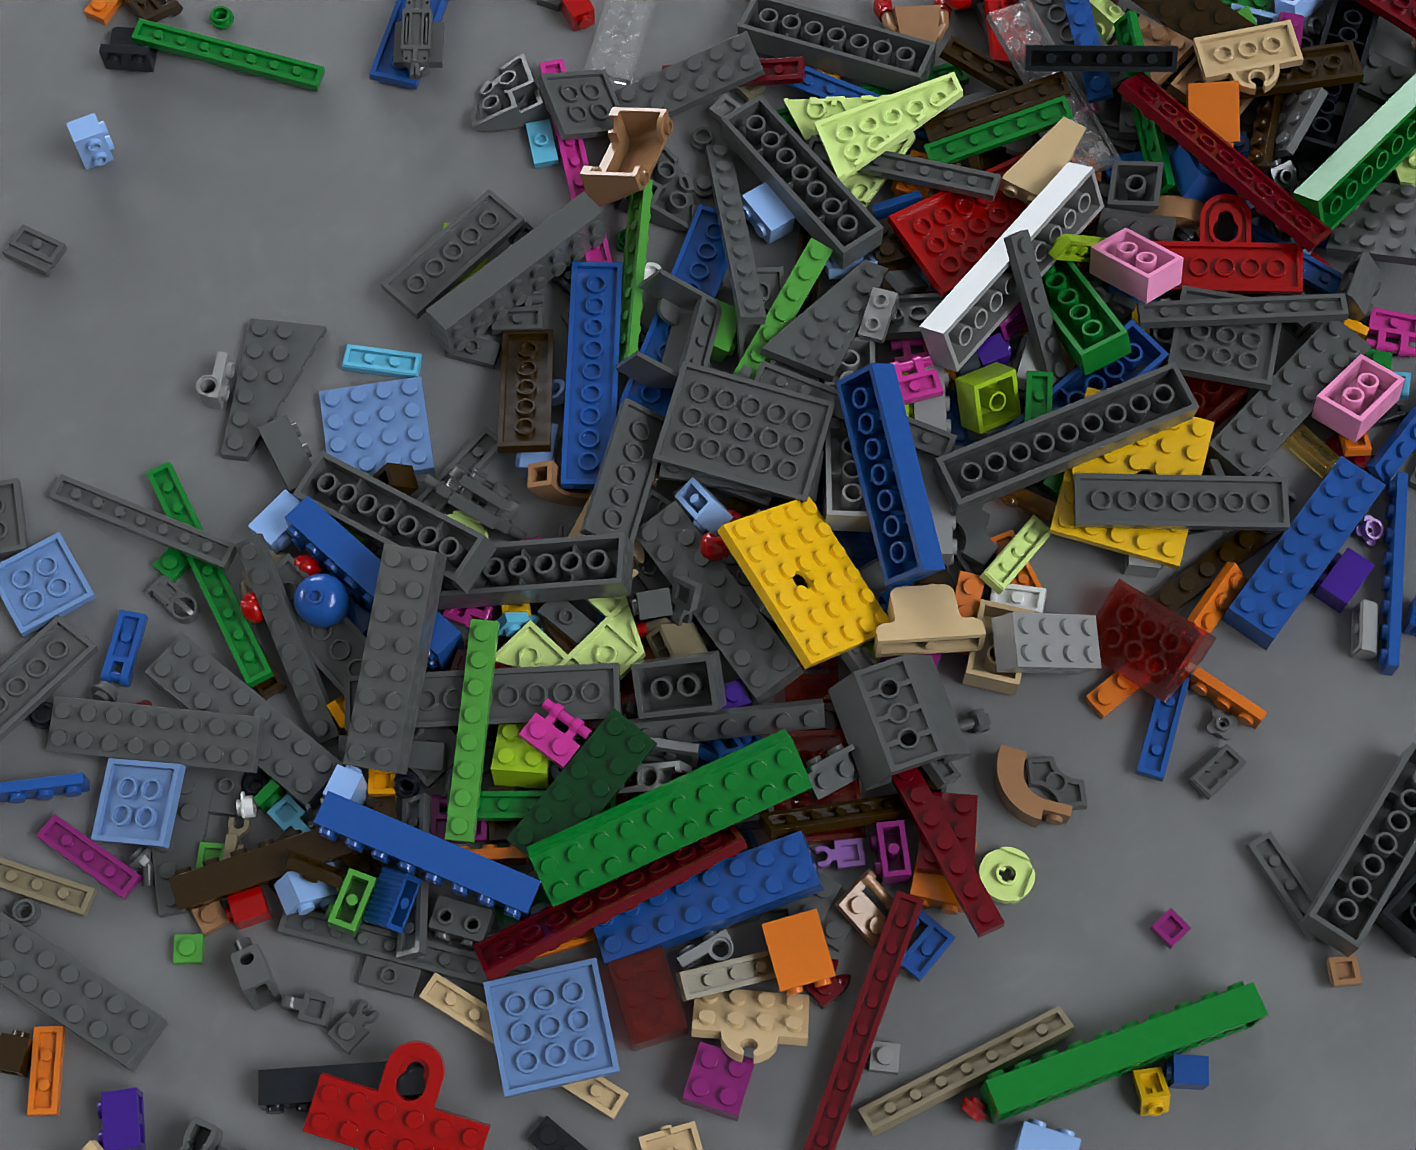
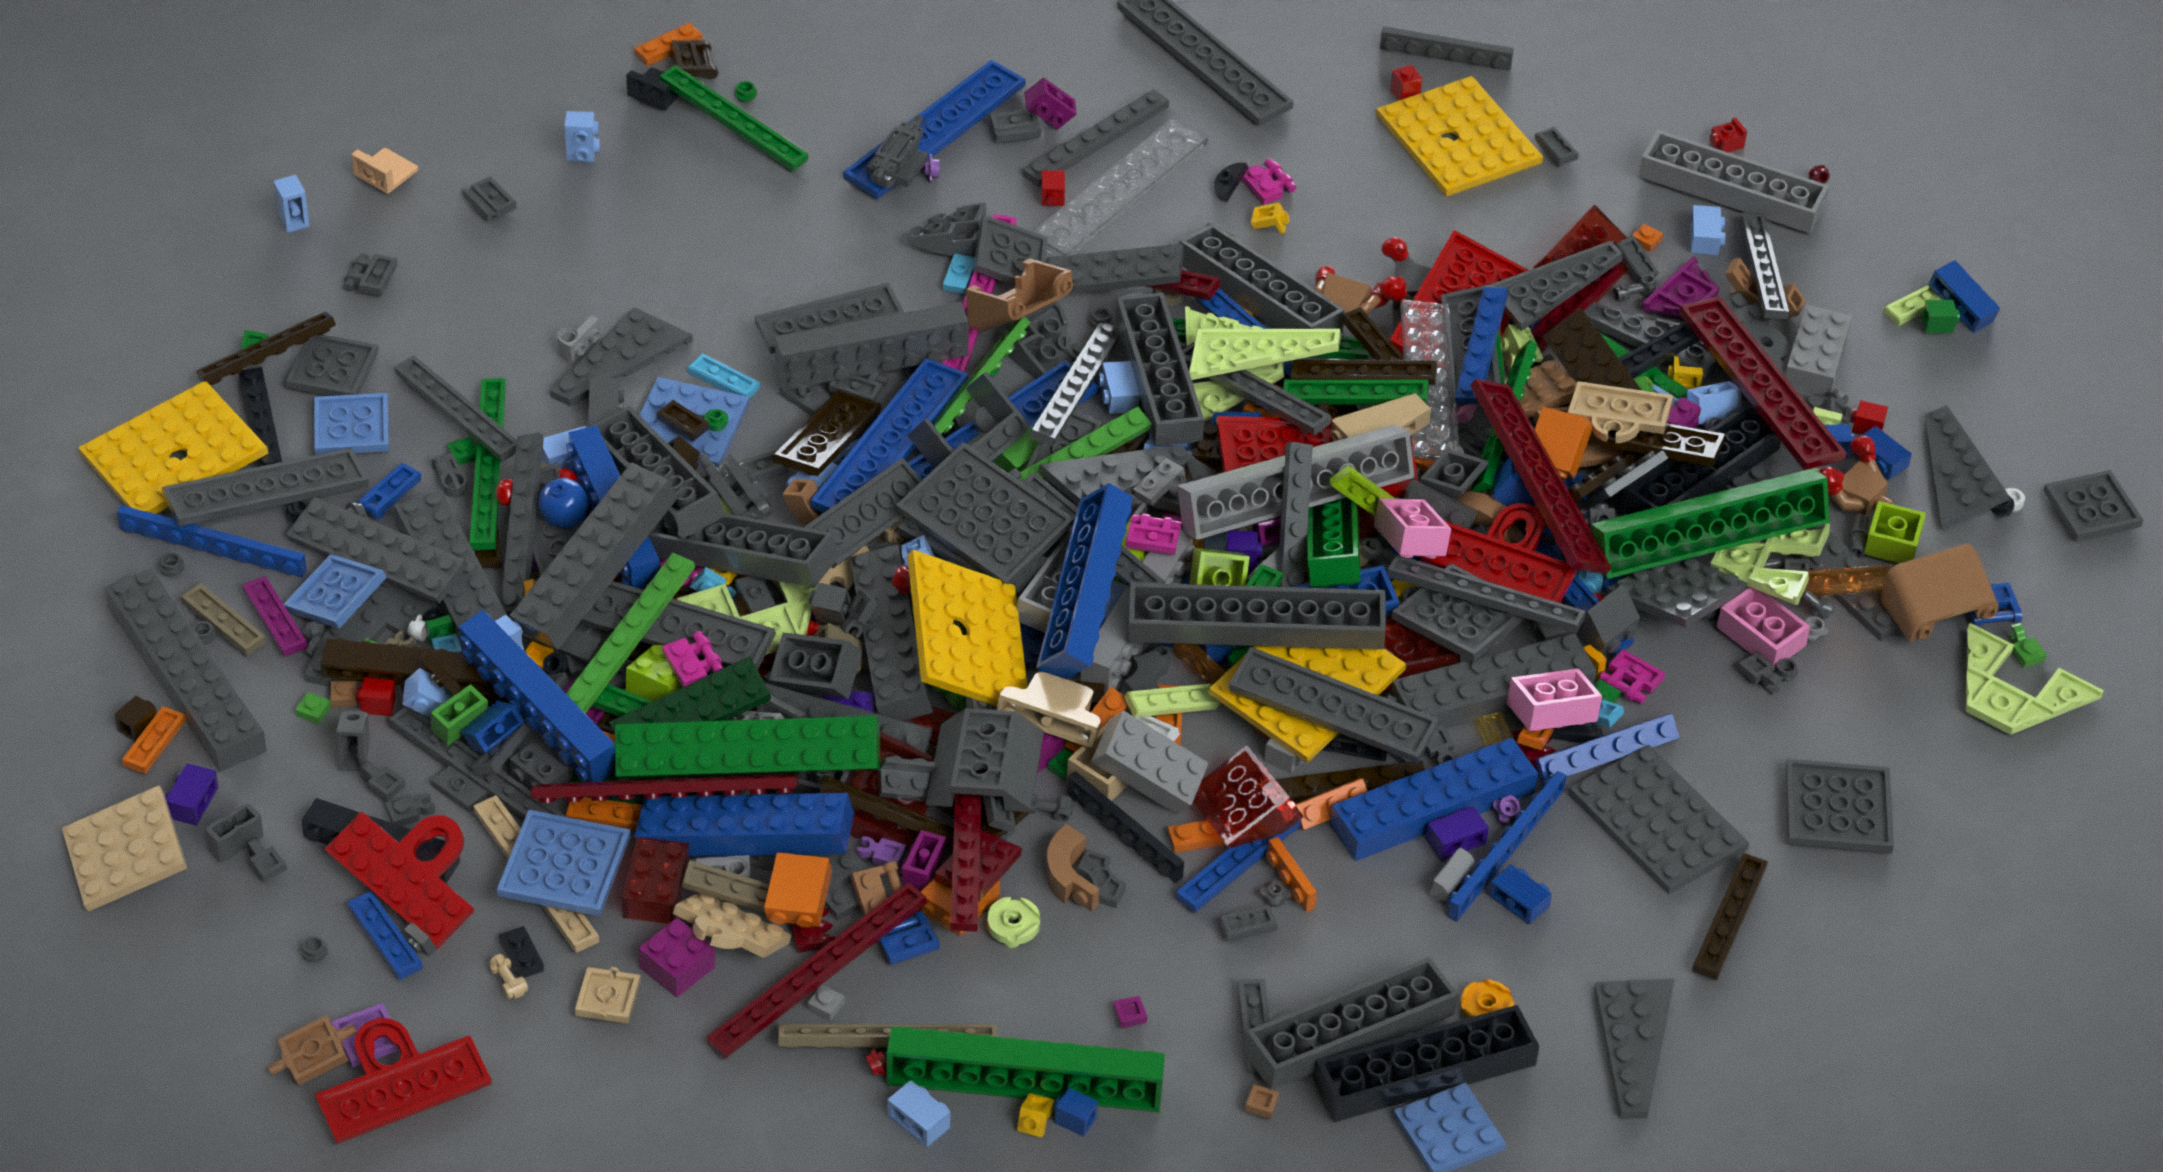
camera: 25 degrees right, 20 degrees down
(377, 437) = (683, 420): none -> dark brown plate
(408, 427) = (717, 419): none -> green plate
(451, 34) = (932, 168): none -> medium lavender plate
(952, 668) = (1059, 764): none -> green plate
(1057, 720) = (1125, 827): none -> black plate
(1101, 58) = (1474, 359): black brick -> none

